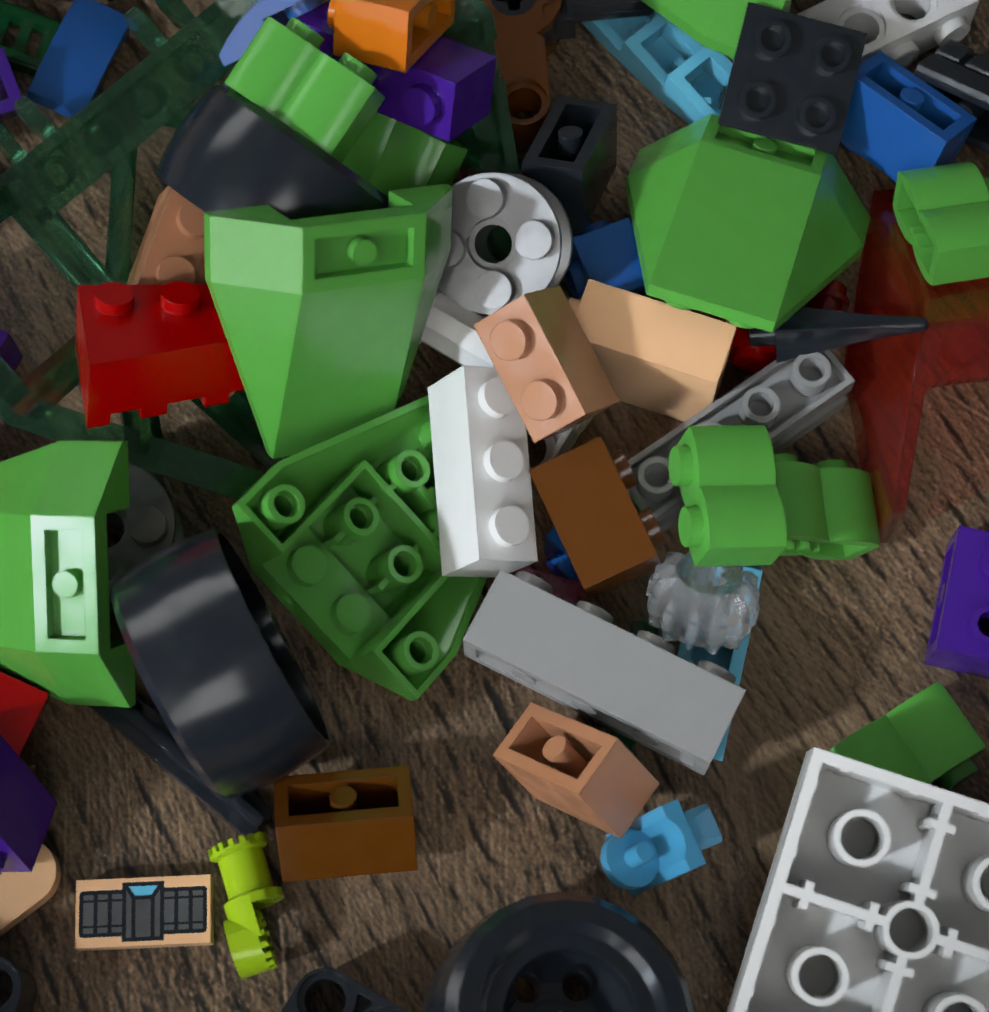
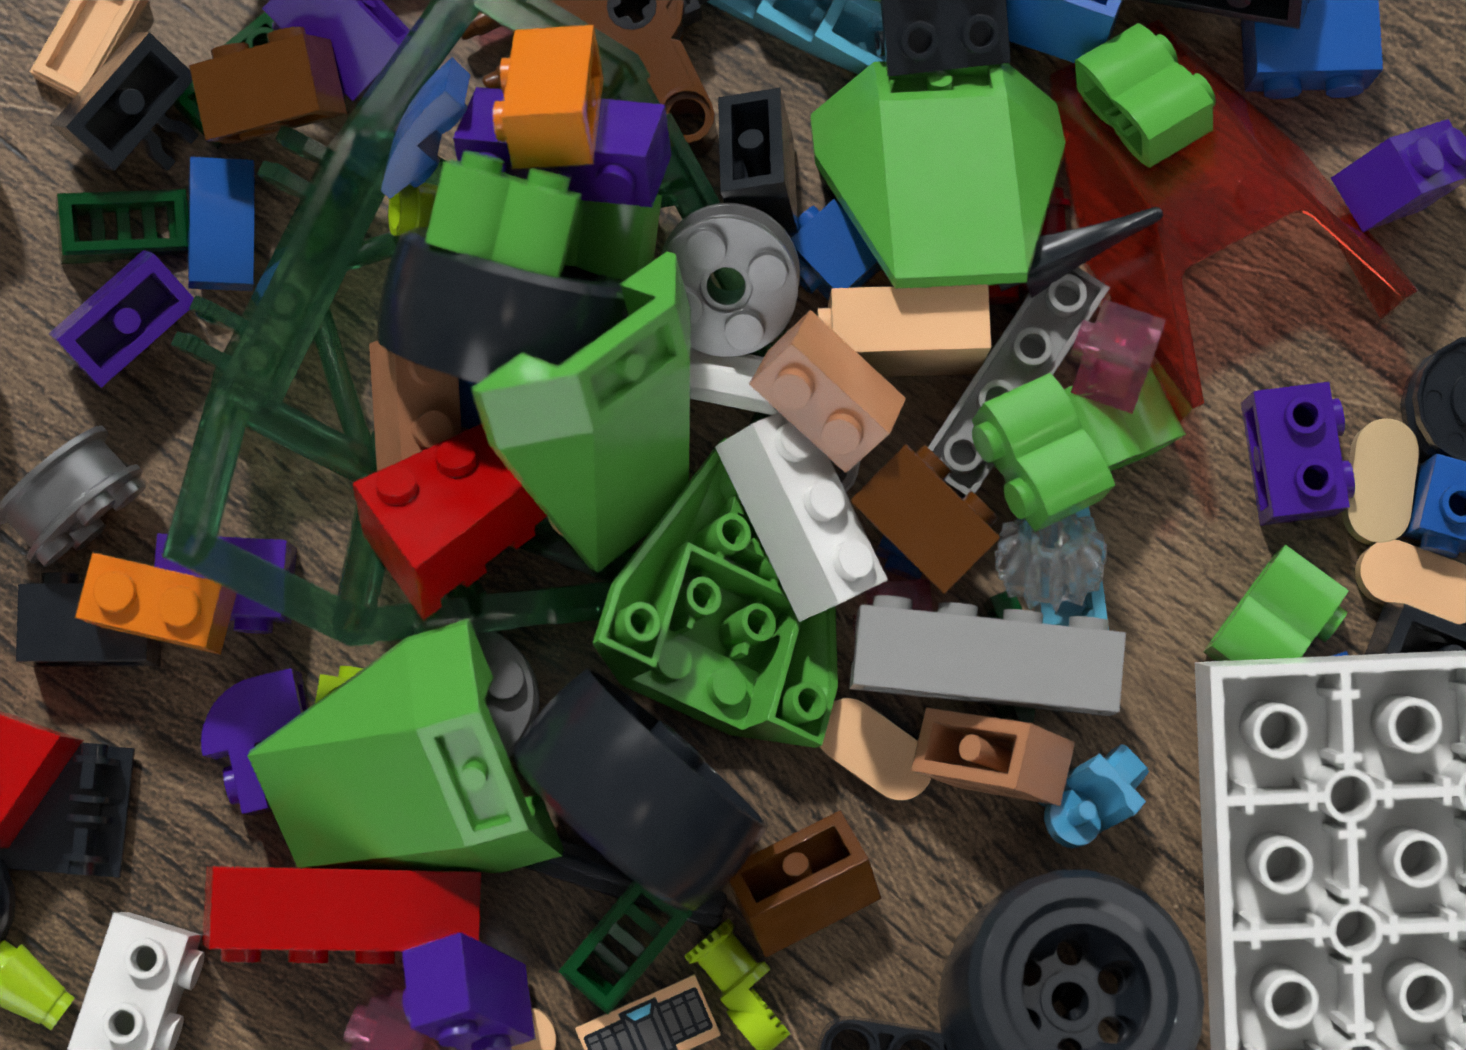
camera: 25 degrees left, 10 degrees up
(102, 821) = (592, 982): none -> dark green slope
(466, 728) = (873, 750): none -> light nougat tile
(836, 438) = (1115, 355): none -> clear pink brick

